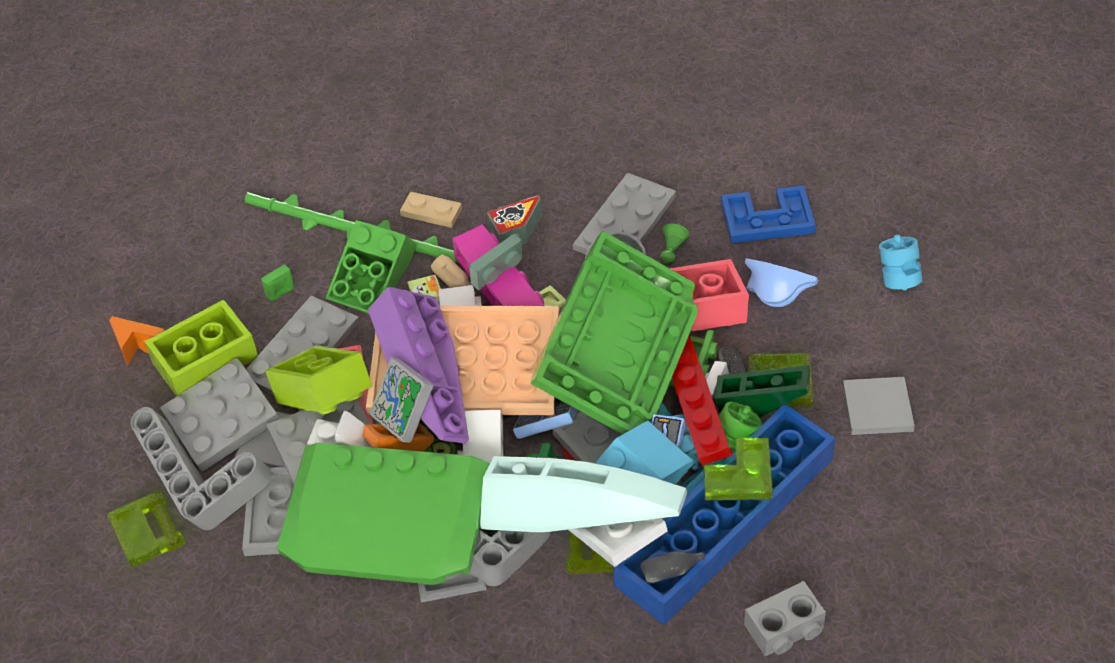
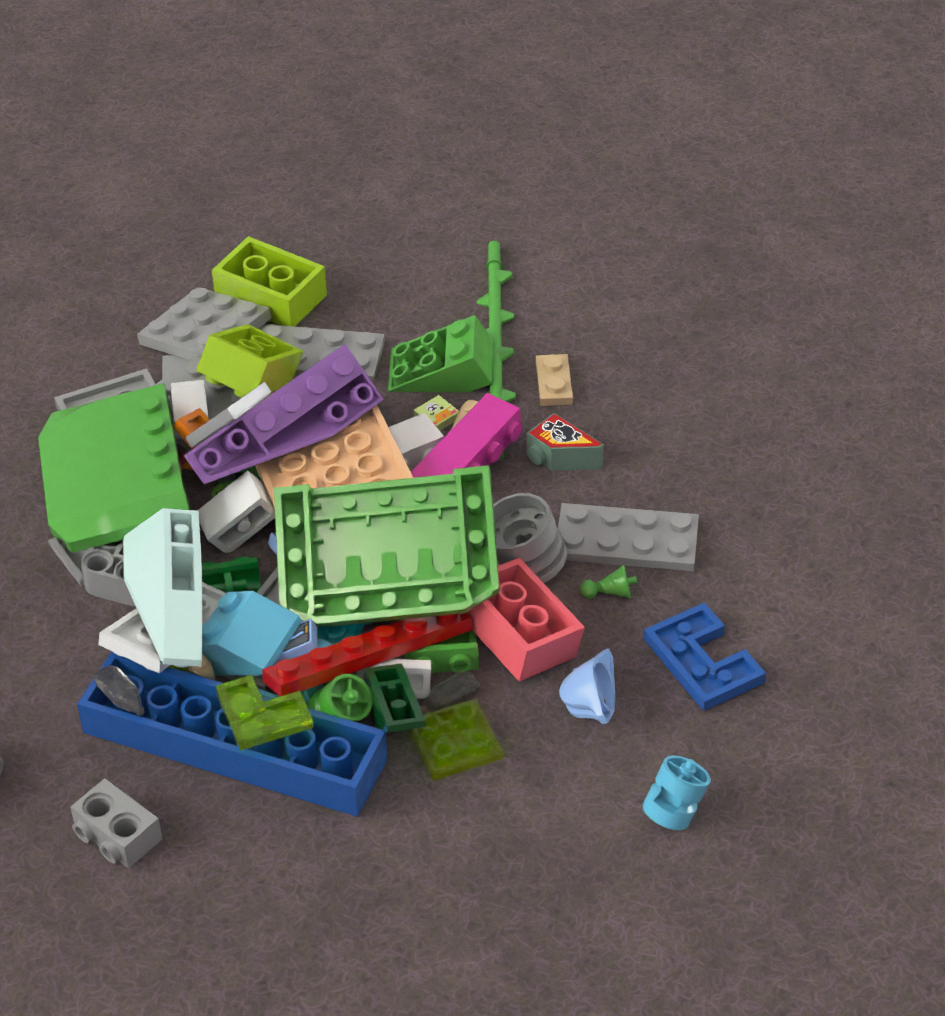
camera: 65 degrees right, 5 degrees down
(132, 336) = (265, 229): orange slope -> none
(136, 534) = (53, 324): clear neon green plate -> none
(198, 501) = (108, 344): light grey beam -> none
(277, 283) = (385, 304): bright green tile -> none
(495, 262) = (461, 430): sand green plate -> none
(878, 405) = (456, 838): light grey tile -> none

